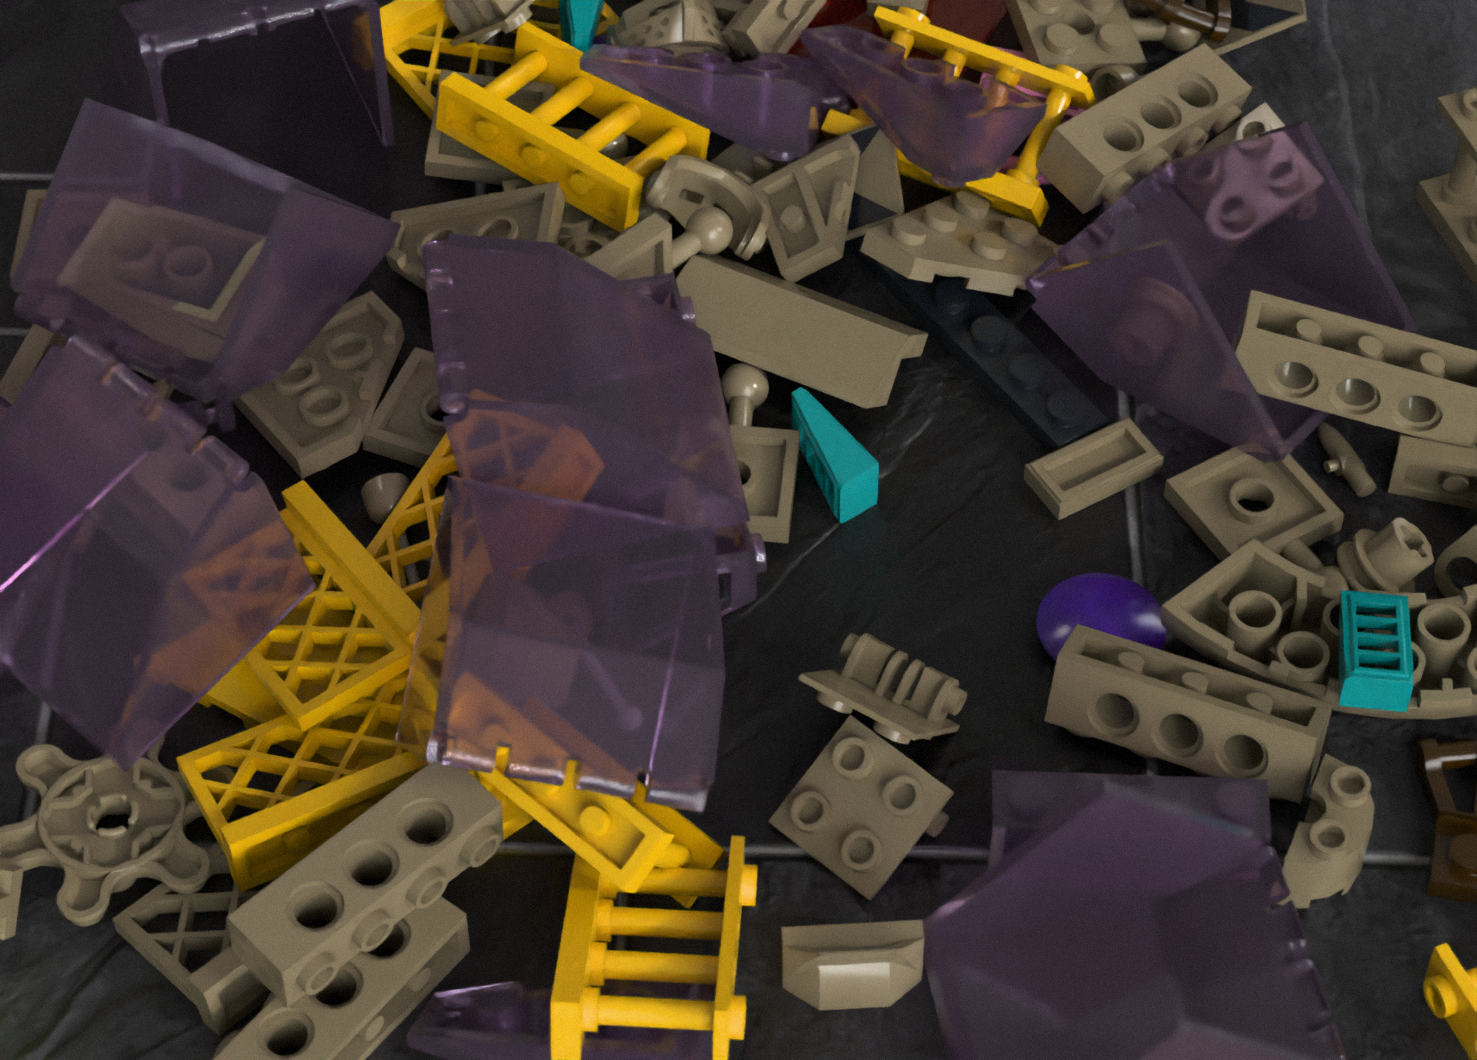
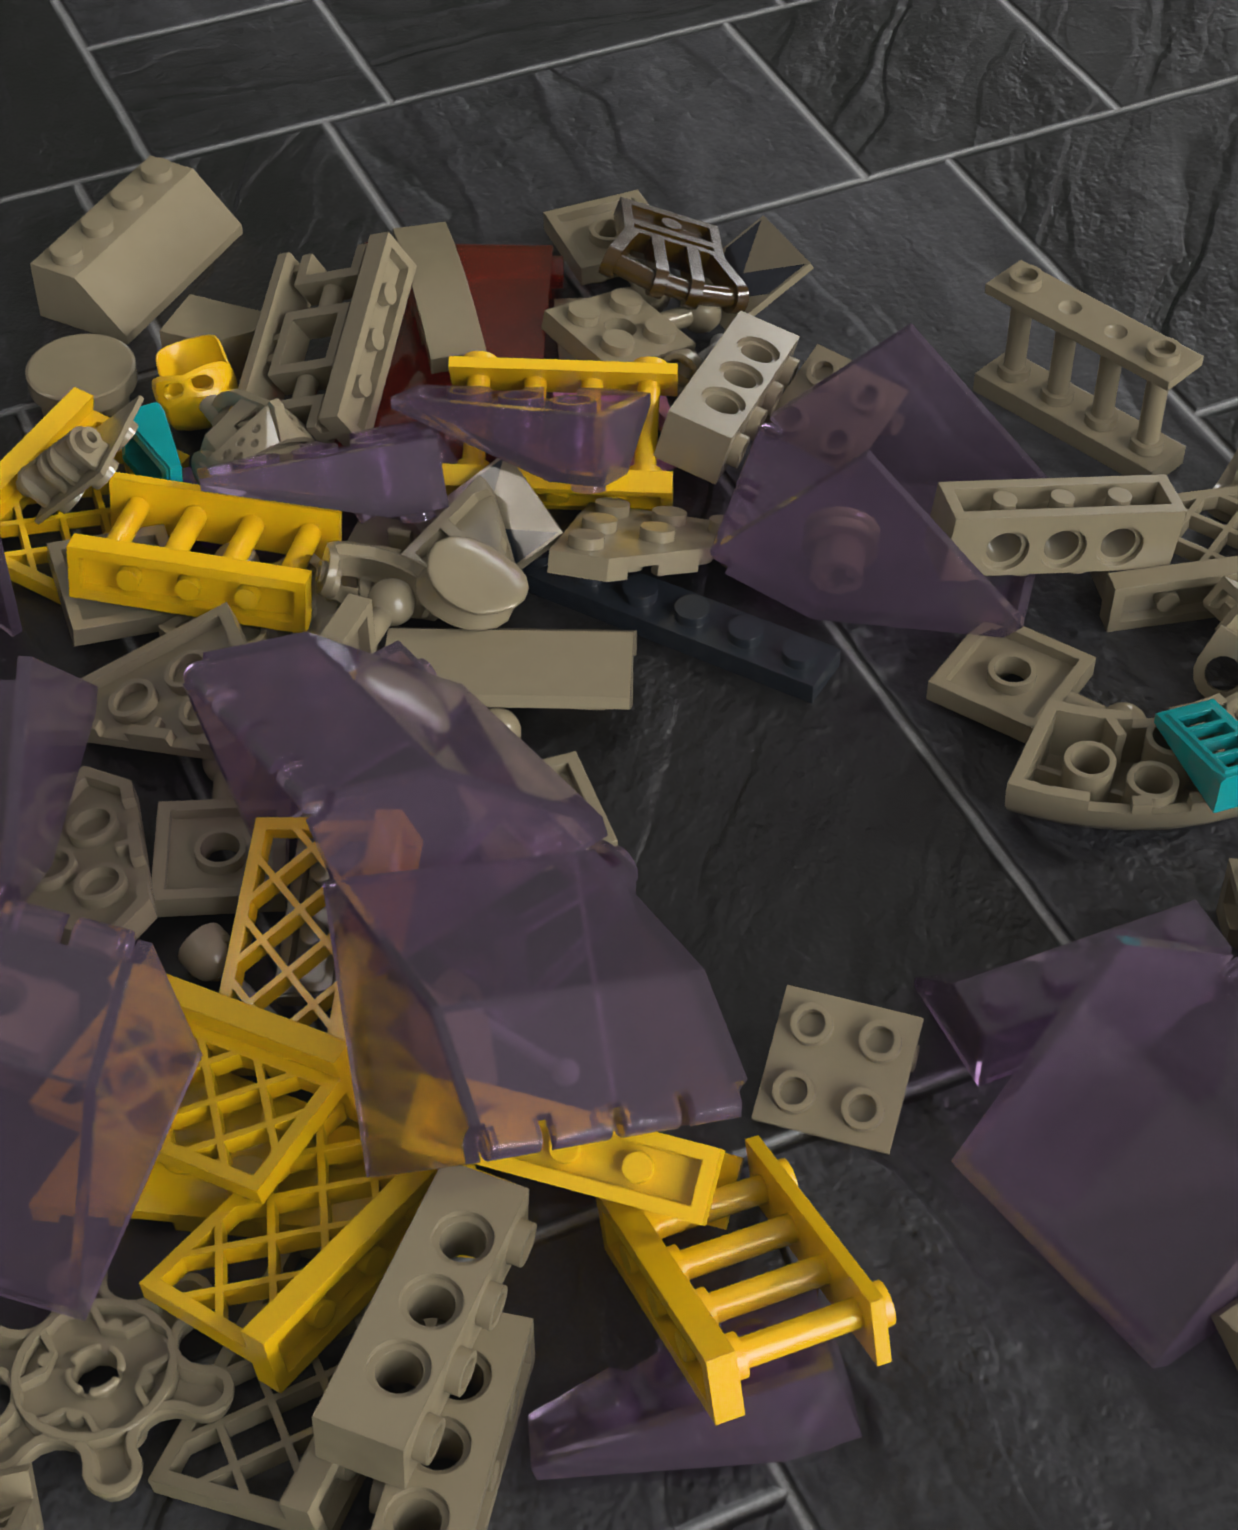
camera: 25 degrees left, 5 degrees down
(782, 238) = (470, 584): none -> dark tan piece
(836, 459) = (619, 764): teal slope -> none
(852, 963) = (917, 1217): dark tan slope -> none
(870, 684) = (771, 964): dark tan hinge -> none
(1093, 468) = (849, 697): dark tan tile -> none
(1101, 603) = (944, 830): dark purple dish -> none
(1219, 702) = (1051, 852): dark tan brick -> none
(1344, 461) = (1061, 618): dark tan helmet -> none
(1385, 558) = (1159, 679): dark tan piece -> none

